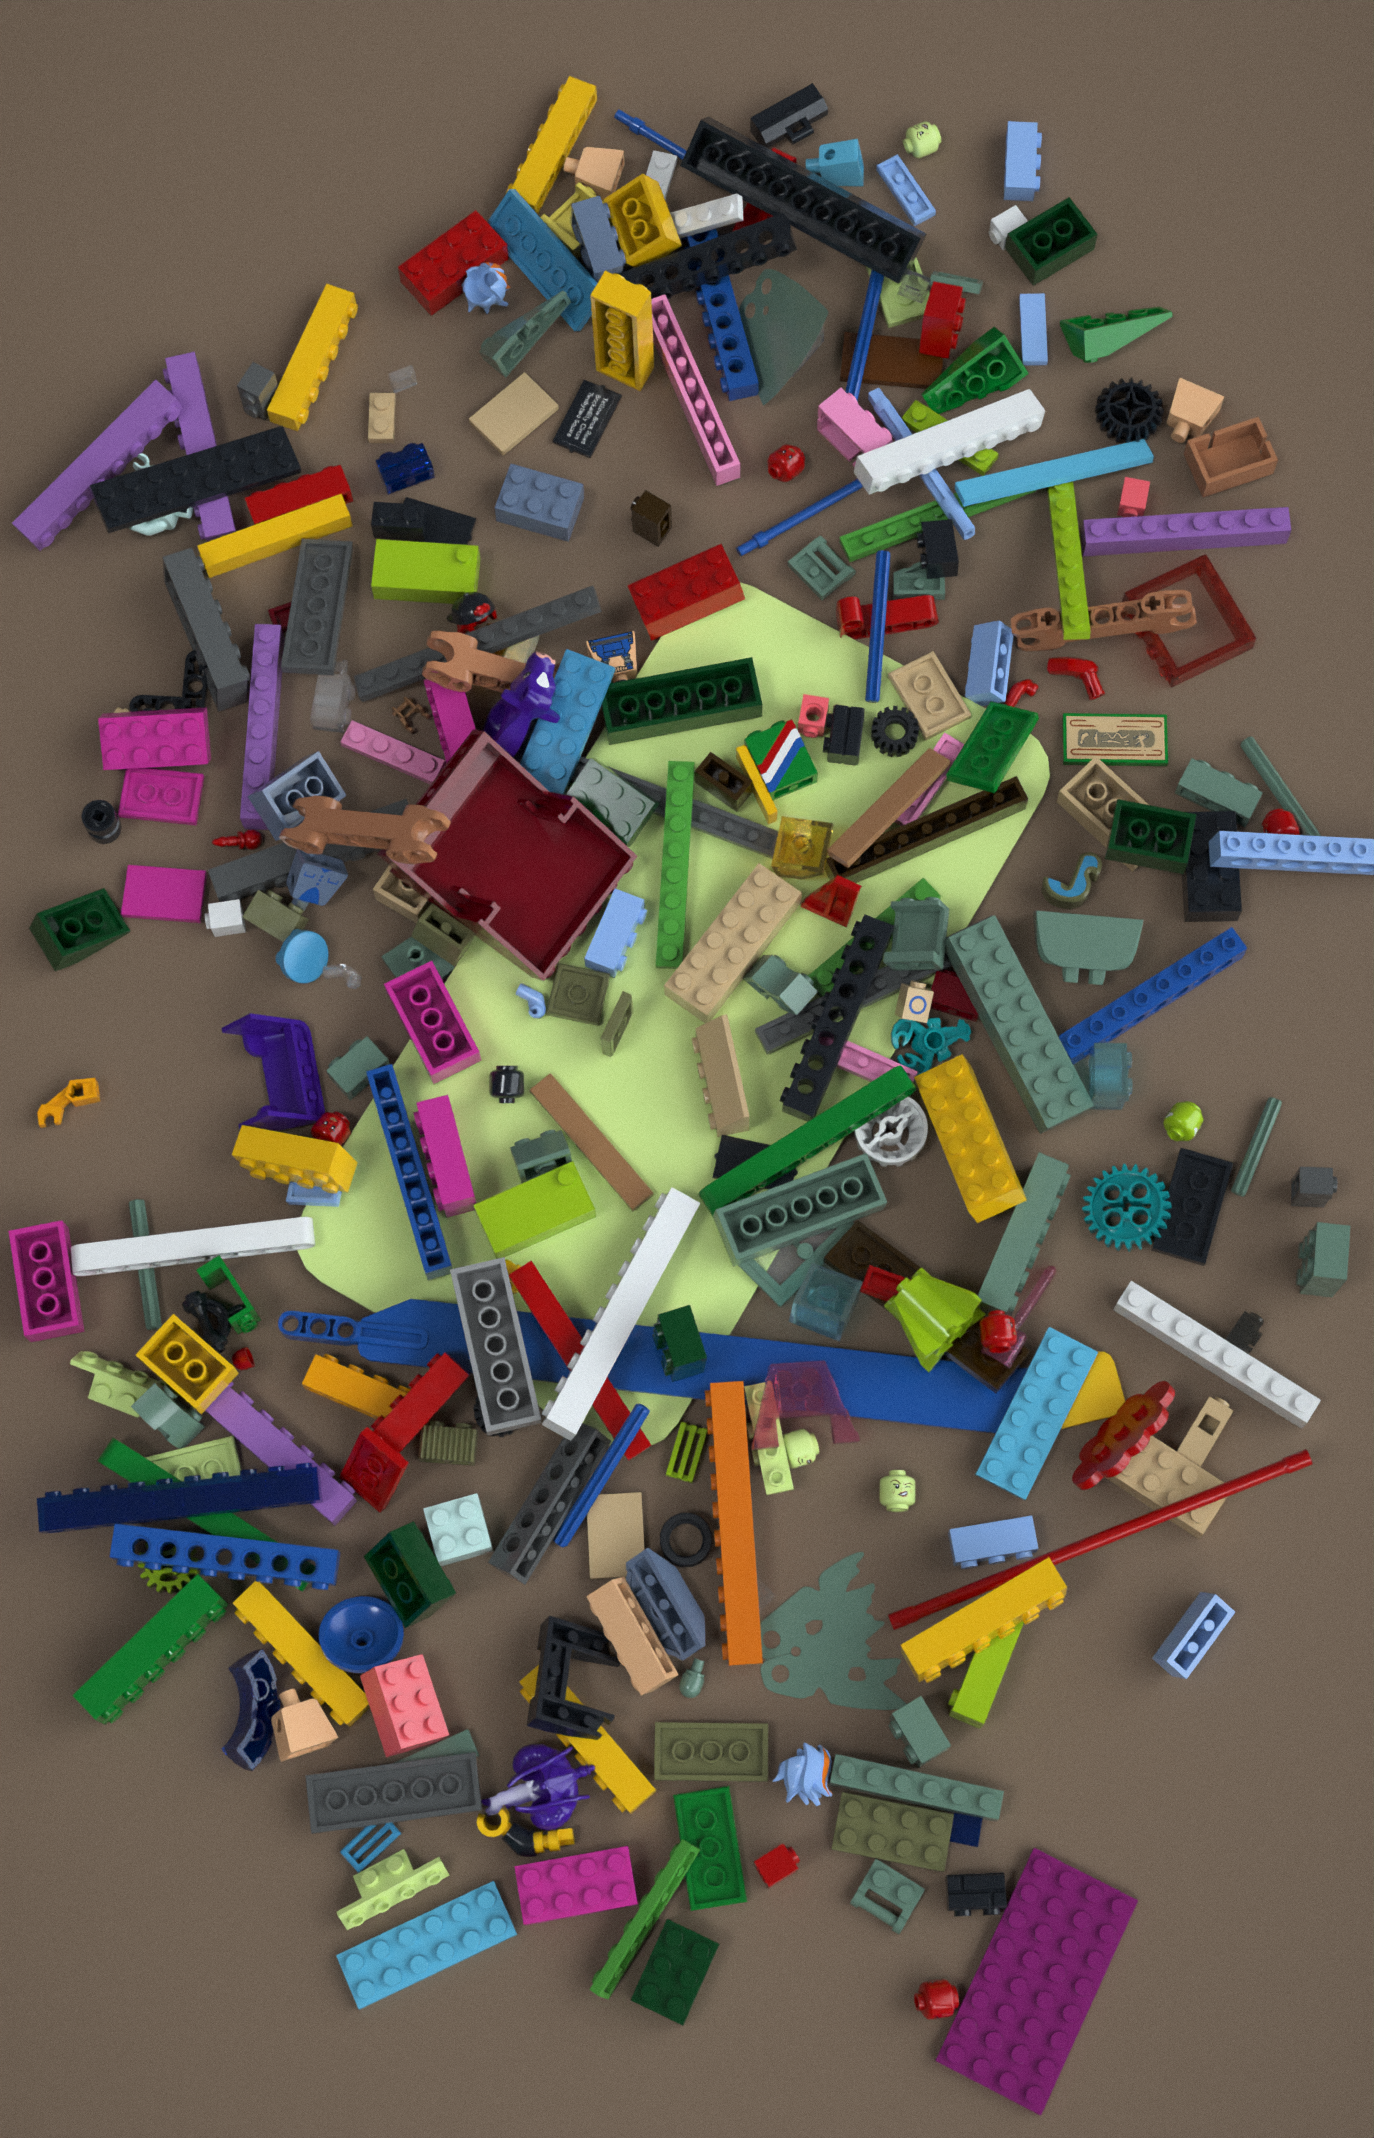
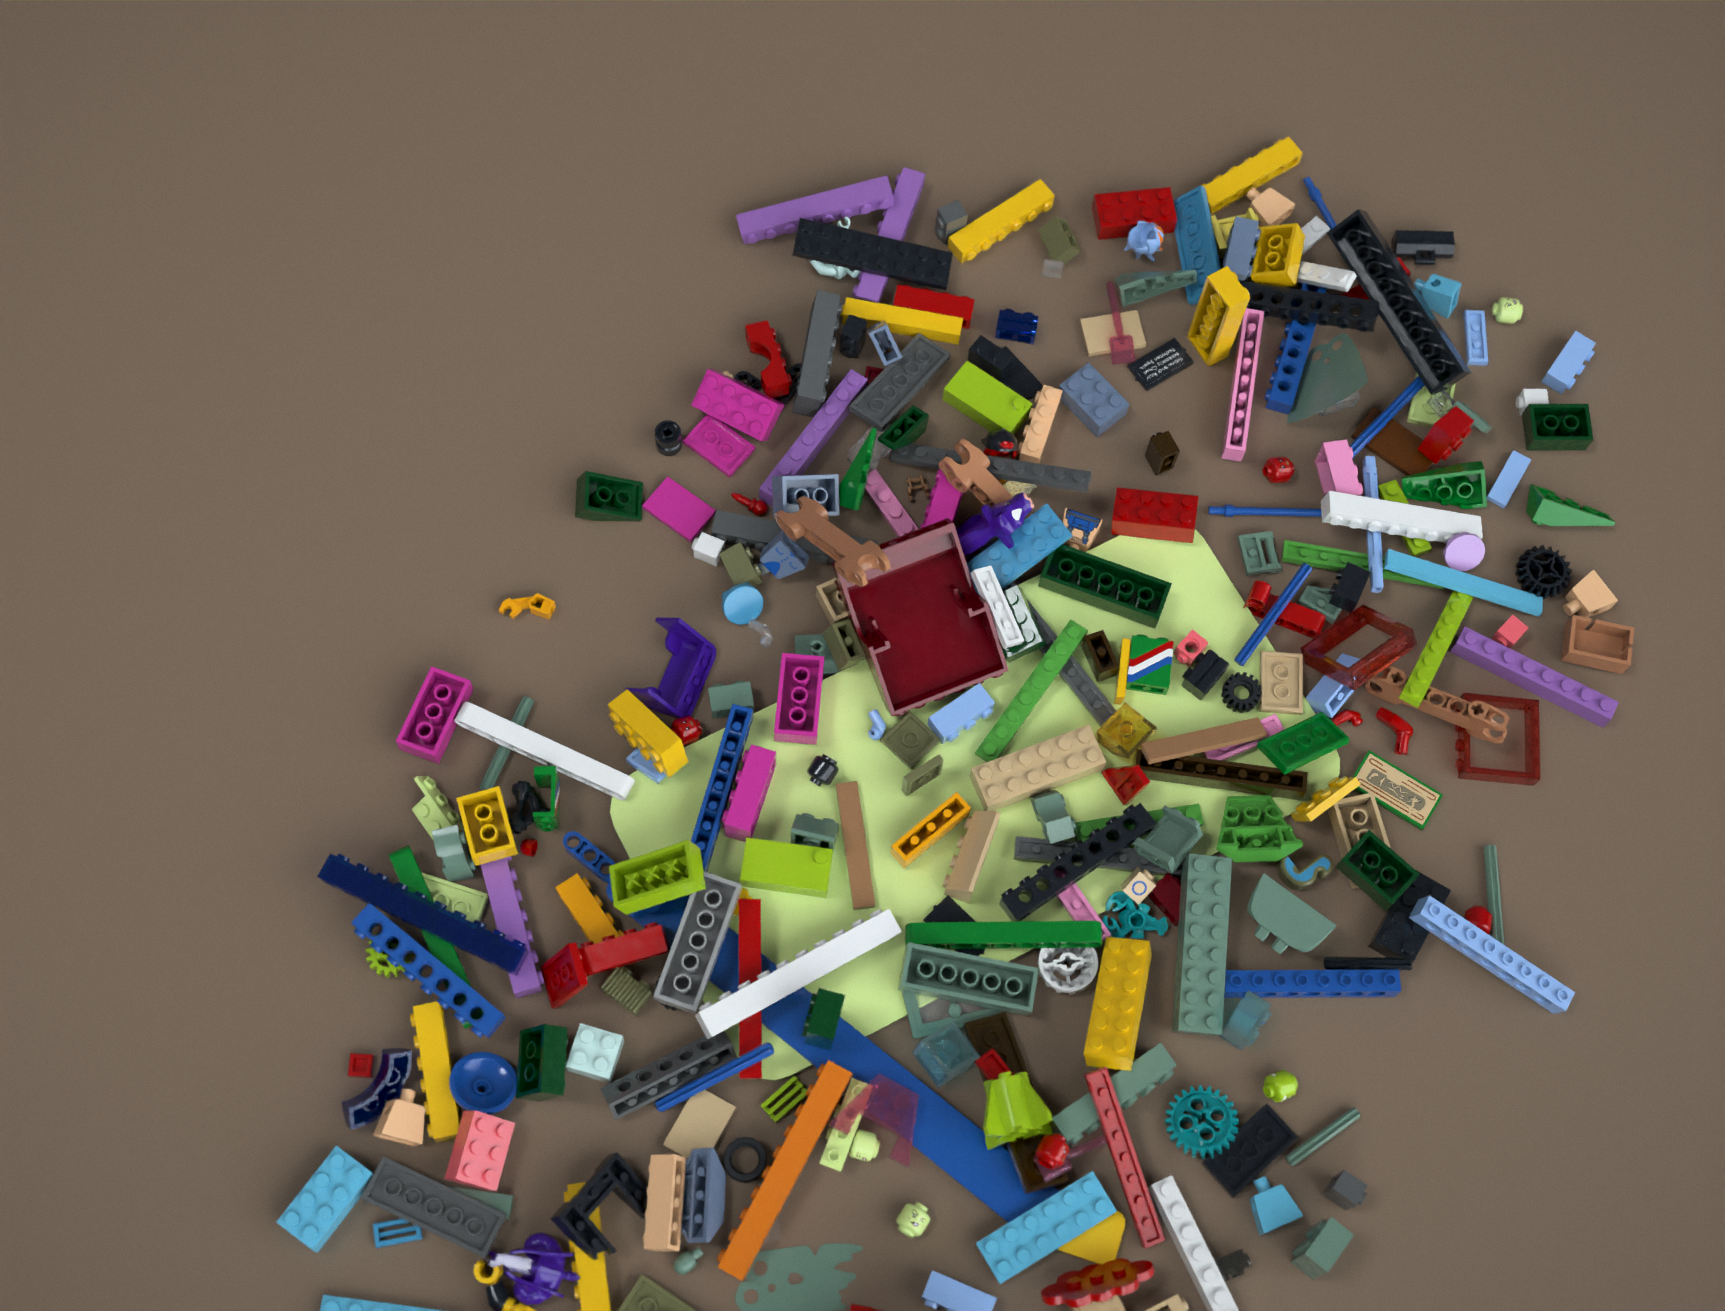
camera: 25 degrees right, 5 degrees down
(133, 650) = (762, 341): none -> red arch
(151, 1650) = (338, 1004): green brick -> none
(215, 1699) = (360, 1065): none -> red tile
(233, 586) = (853, 337): none -> black brick
(269, 569) = (884, 341): none -> sand blue torso
(274, 1857) = (326, 1199): none -> medium azure brick
(338, 746) = (854, 482): none -> green wedge
(358, 656) = (905, 429): none -> dark green slope
(381, 418) = (1022, 286): tan plate -> none
(389, 1884) = (389, 1268): yellowish green bracket -> none
(391, 342) = (1059, 240): none -> olive brick
(410, 1305) = (657, 877): none -> lime brick
(501, 565) = (1041, 423): none -> light nougat brick
(532, 422) = (1121, 345): none -> clear pink piece
(569, 782) = (1002, 616): none -> white plate
(661, 1077) = (930, 830): none -> light orange brick
(999, 870) = (1255, 830): none -> bright green wedge
(1014, 621) = (1369, 665): none -> clear red window
(1034, 438) = (1464, 551): none -> lavender tile
(1050, 793) = (1324, 799): none -> yellow plate
(1072, 1292) = (1124, 1157): none -> tile
(1196, 939) = (1368, 963): none -> black axle
(1218, 791) = (1448, 869): sand green brick -> none
(1249, 1249) = (1272, 1206): none -> medium azure torso

